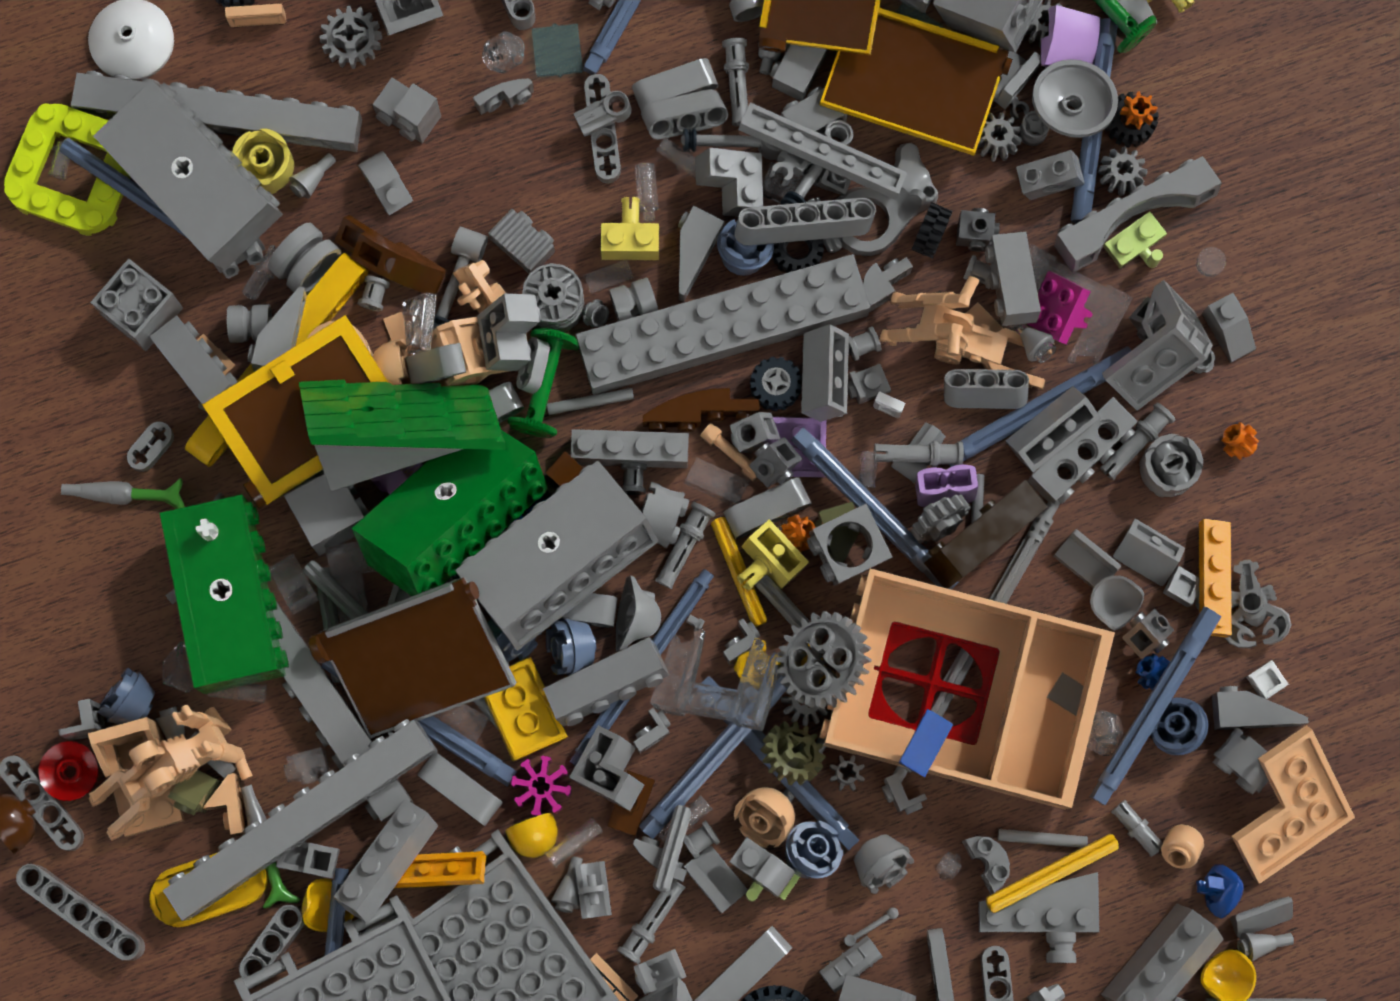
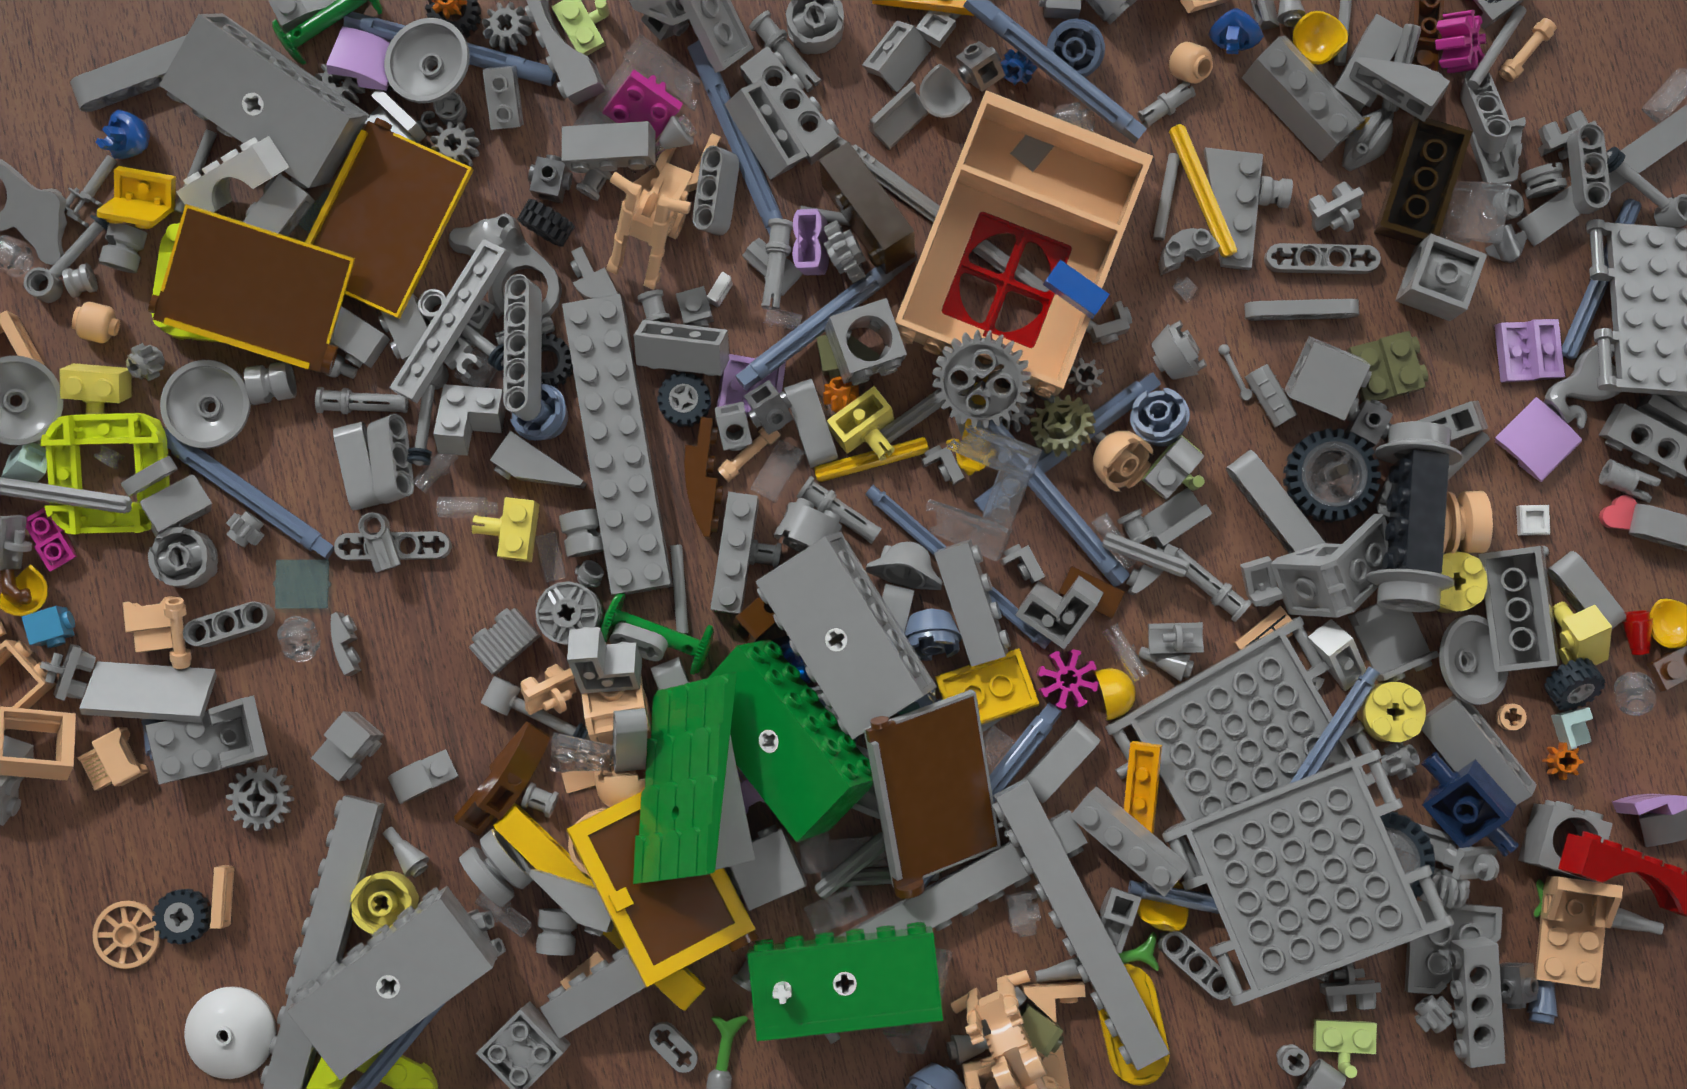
camera: 80 degrees left, 5 degrees up
(697, 623) = (920, 506): light grey piece -> none

